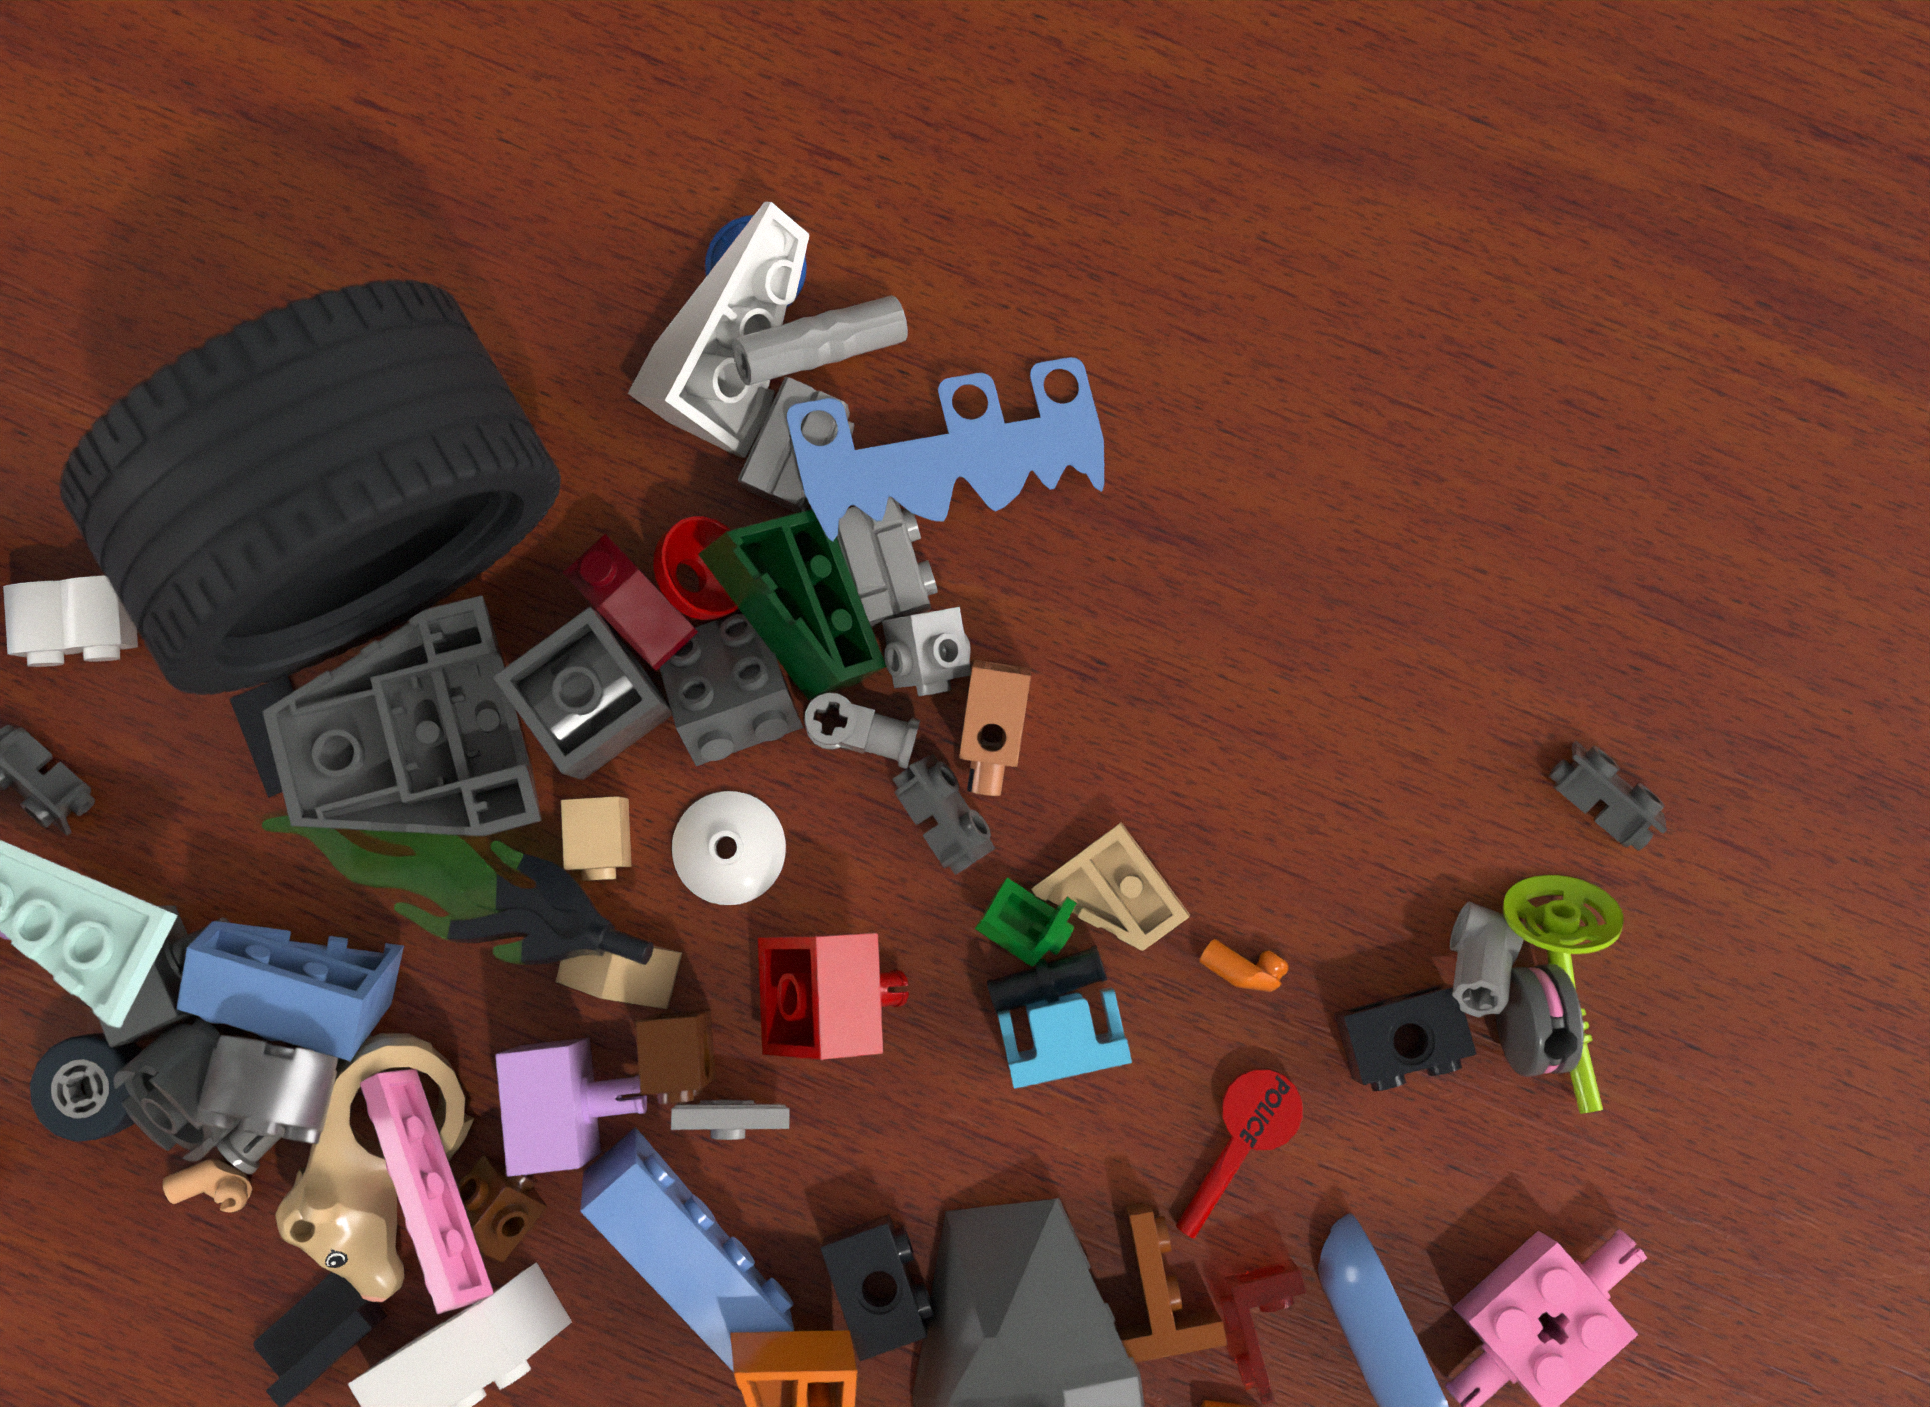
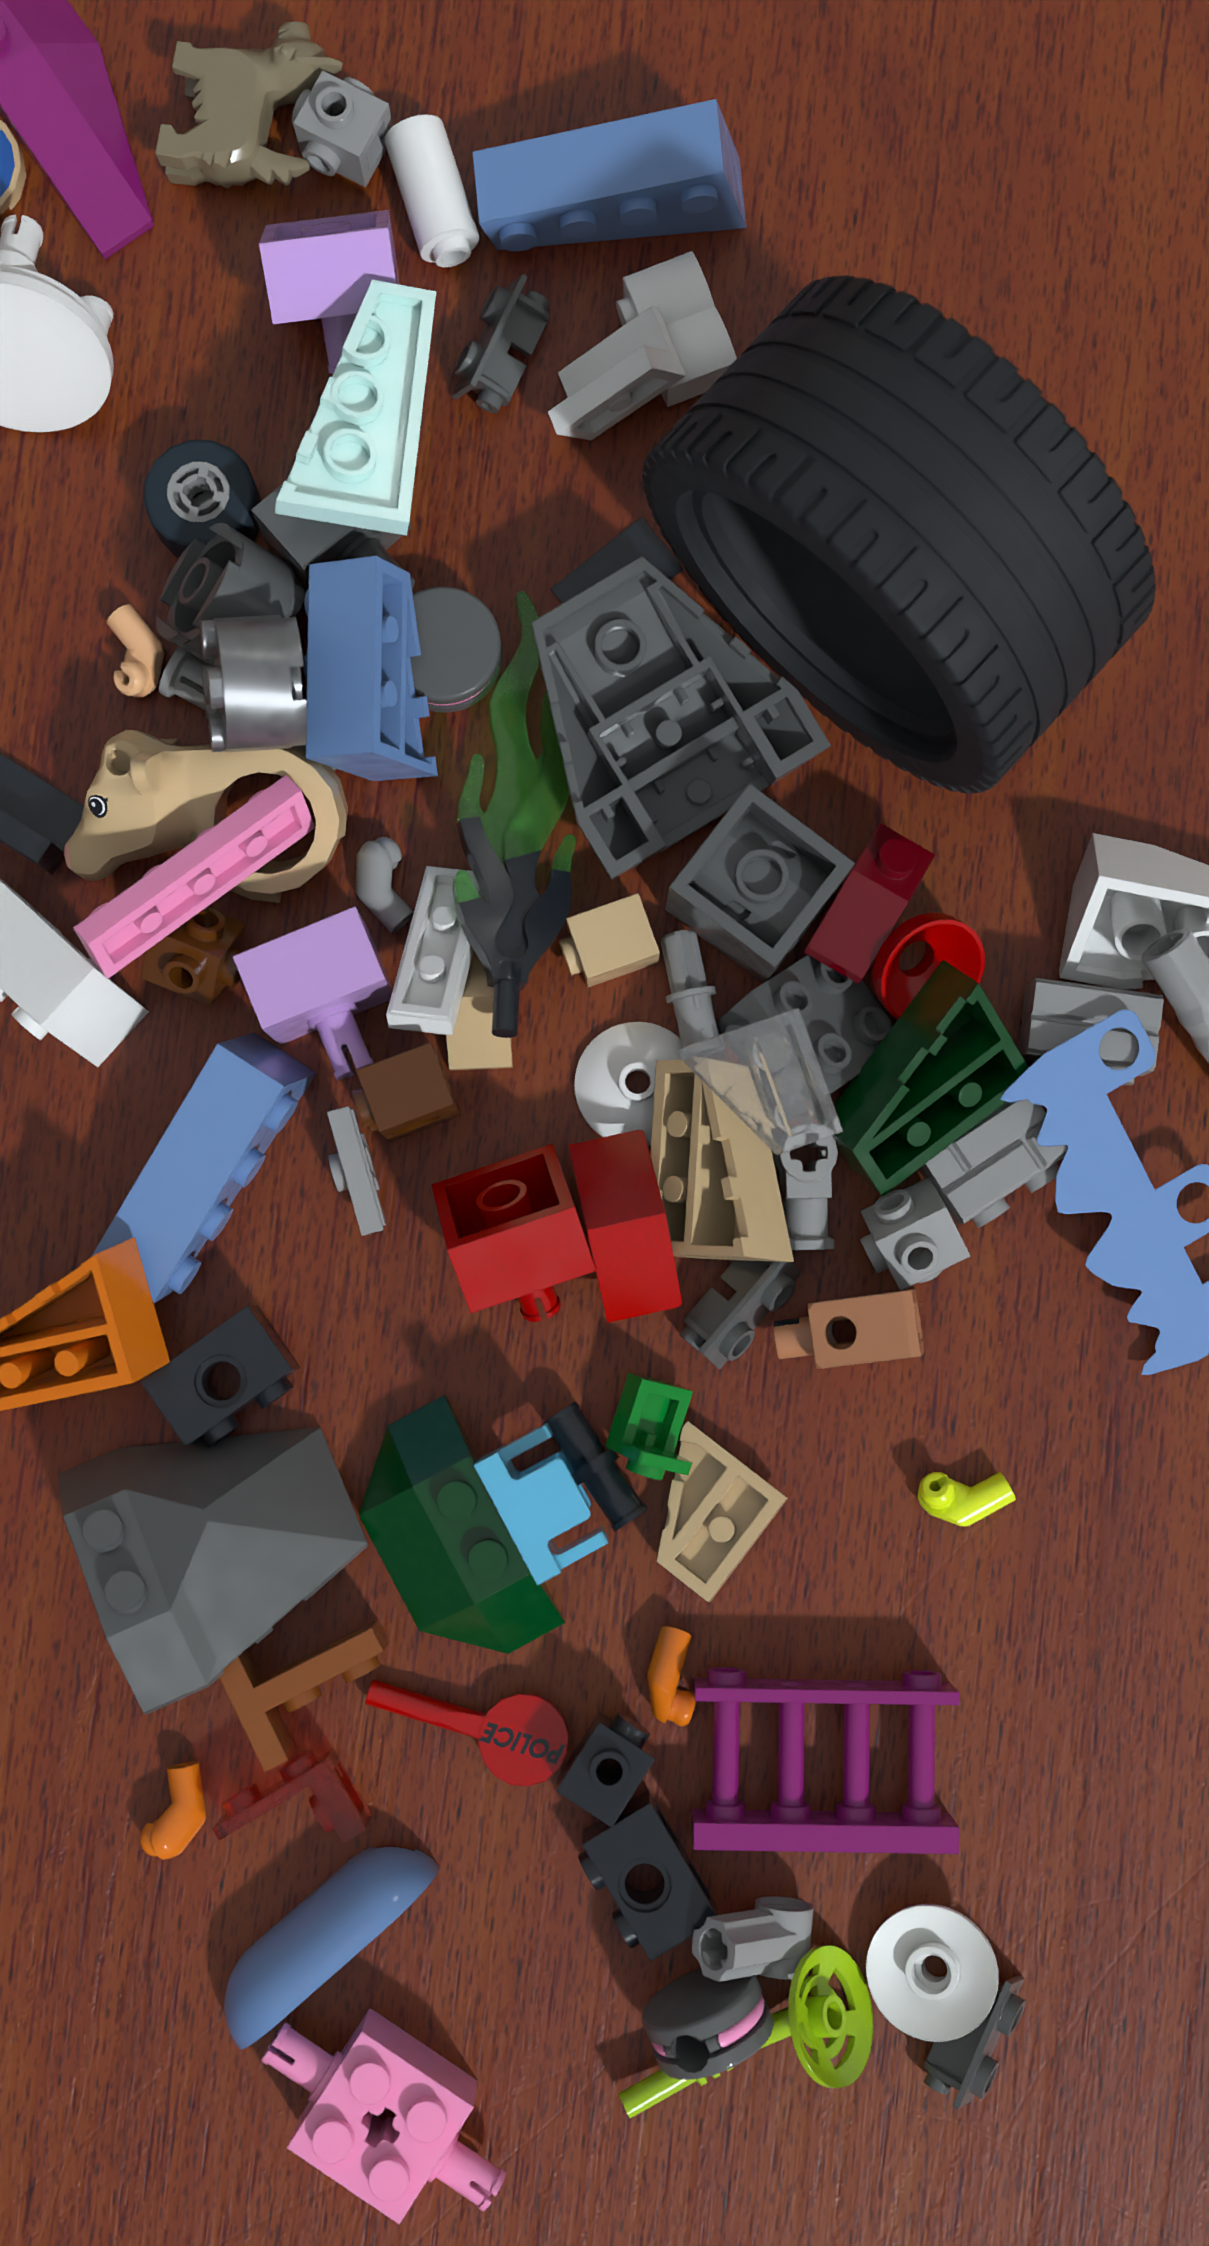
camera: 70 degrees right, 0 degrees up
(96, 685) = (617, 377): none -> white panel
(295, 896) = (457, 649): none -> dark grey head
(482, 1029) = (373, 883): none -> light grey arm
(565, 997) = (433, 960): none -> white tile
(664, 779) = (688, 987): none -> light grey axle
(757, 735) = (769, 1080): none -> clear wing
(818, 805) = (713, 1174): none -> tan wedge
(847, 895) = (626, 1225): none -> red panel
(1072, 1127) = (448, 1538): none -> dark green wedge
(1166, 676) = (961, 1503): none -> neon yellow arm
(1318, 1059) = (607, 1789): none -> black brick
(1409, 845) = (855, 1822): none -> magenta fence
(1568, 836) = (915, 1999): none -> white dish

